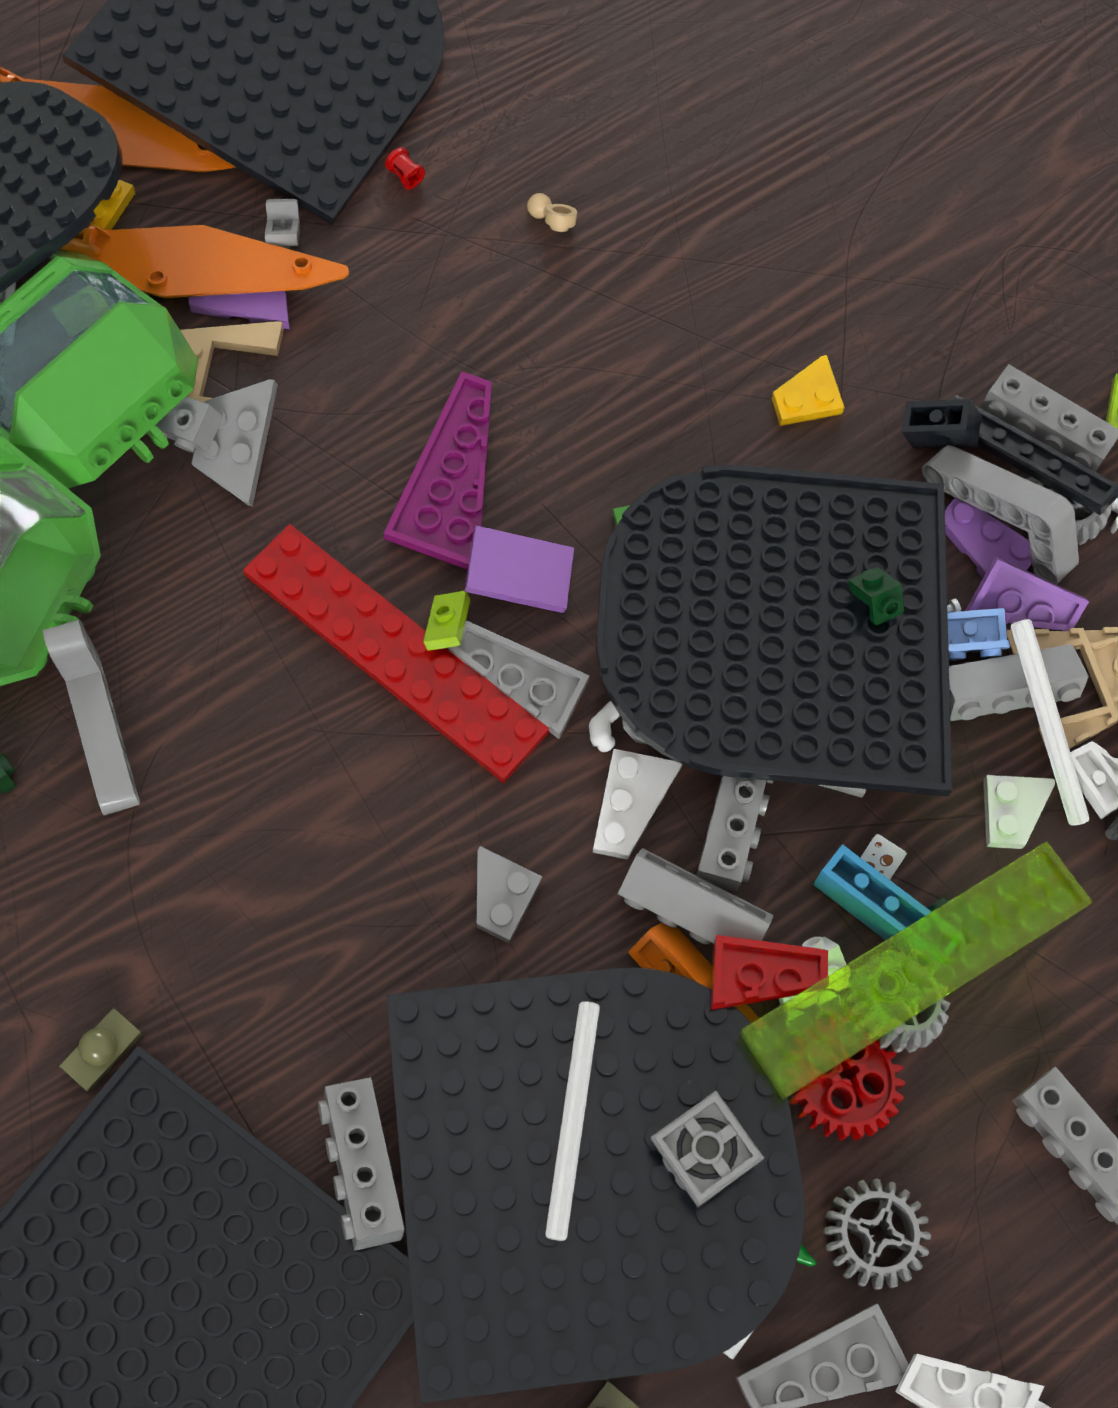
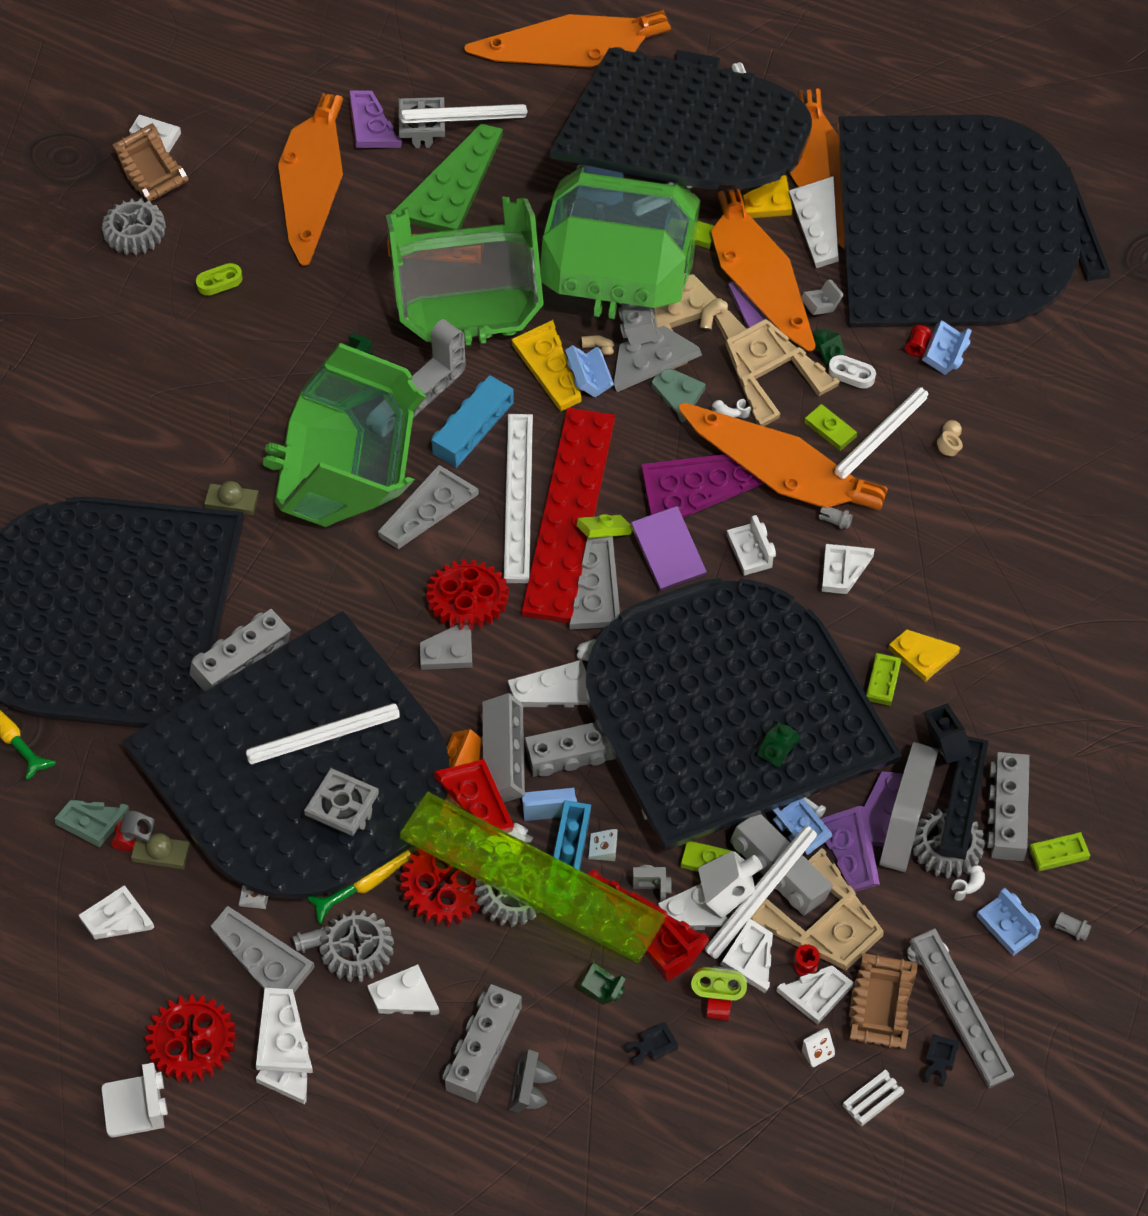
camera: 65 degrees right, 10 degrees down
(135, 857) = (346, 438): none -> bright green windscreen
(149, 555) = (545, 358): none -> yellow wing
(169, 169) = (817, 218): none -> white wing
(170, 483) = (598, 341): none -> tan arm
(189, 687) = (472, 421): none -> dark azure brick
(209, 513) = (589, 370): none -> light blue bracket
(217, 342) = (711, 309): none -> tan arm
(278, 804) = (428, 505): none -> light grey wing
(301, 440) = (677, 389): none -> sand green wing
(312, 327) = (763, 350): none -> tan wing
(334, 696) = (518, 498): none -> white tile
(349, 252) = (828, 343): none -> dark green bracket
(366, 407) = (720, 407): none -> white arm
(398, 253) = (852, 371): none -> white plate
(435, 146) = (946, 347): none -> light blue bracket
(458, 316) = (830, 427): none -> lime plate
(475, 387) = (782, 461): none -> orange wing
(475, 823) = (467, 594): none -> red gear
(505, 271) = (874, 439): none -> white axle
(572, 480) = (752, 547): none -> white bracket
(583, 377) = (837, 517): none -> light grey pin
(654, 407) = (844, 566): none -> white wing
(792, 891) = (546, 803): none -> light blue panel
(822, 448) = (883, 679): none -> lime plate
(835, 1291) = (307, 940): none -> light grey pin
(952, 833) = (652, 878): none -> light grey bracket
(965, 1208) = (403, 993): none -> white wing
(967, 747) = (700, 854): none -> lime plate
(1018, 748) = (728, 881): none -> white torso
(1064, 836) = (675, 943): none -> red wedge
(1072, 962) = (601, 984): none -> dark green bracket

